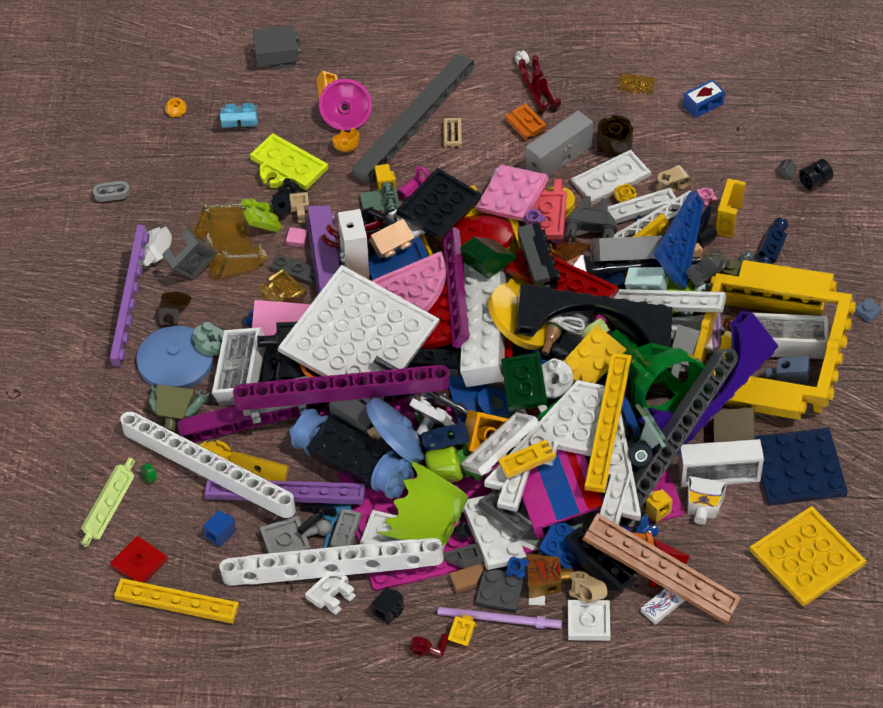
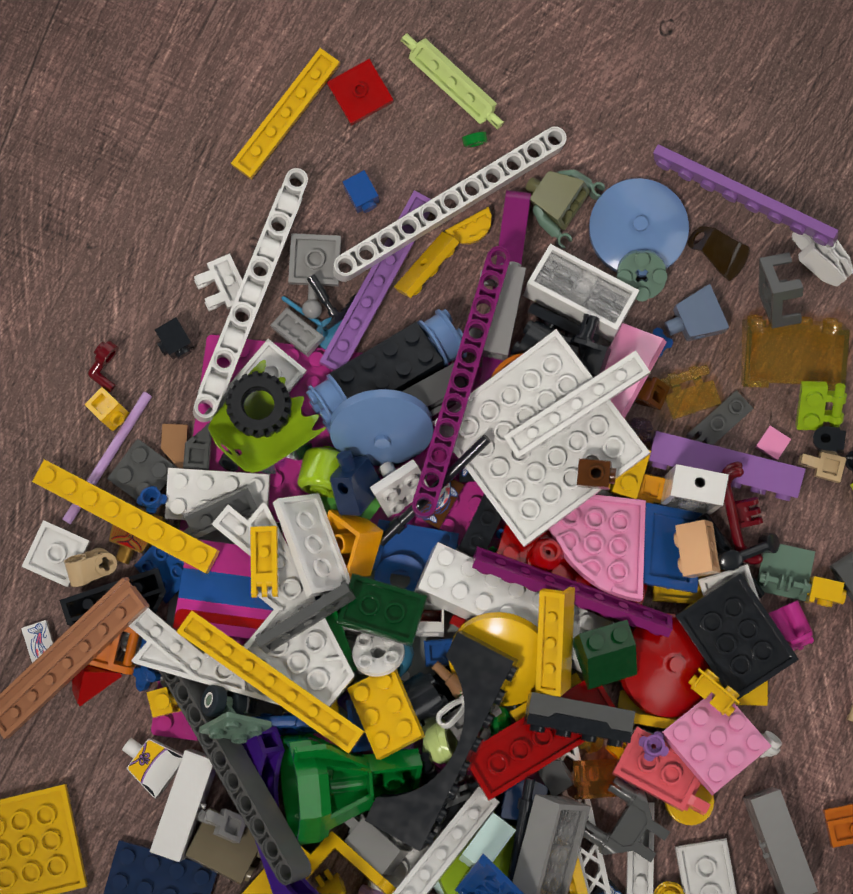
camera: 115 degrees right, 30 degrees up
(225, 301) = (698, 316): none -> sand blue torso
(328, 313) = (577, 404): none -> white plate
(371, 286) = (595, 474): none -> reddish brown brick
(414, 501) = (248, 385): none -> black tyre
(437, 308) = (541, 558): none -> red plate
(481, 194) = (723, 697): none -> yellow hinge
(495, 277) = (555, 641): none -> yellow panel
(538, 575) = (126, 516): none -> yellow plate
(554, 416) = (305, 618): none -> dark grey hinge
(719, 427) = (227, 824): none -> light grey plate

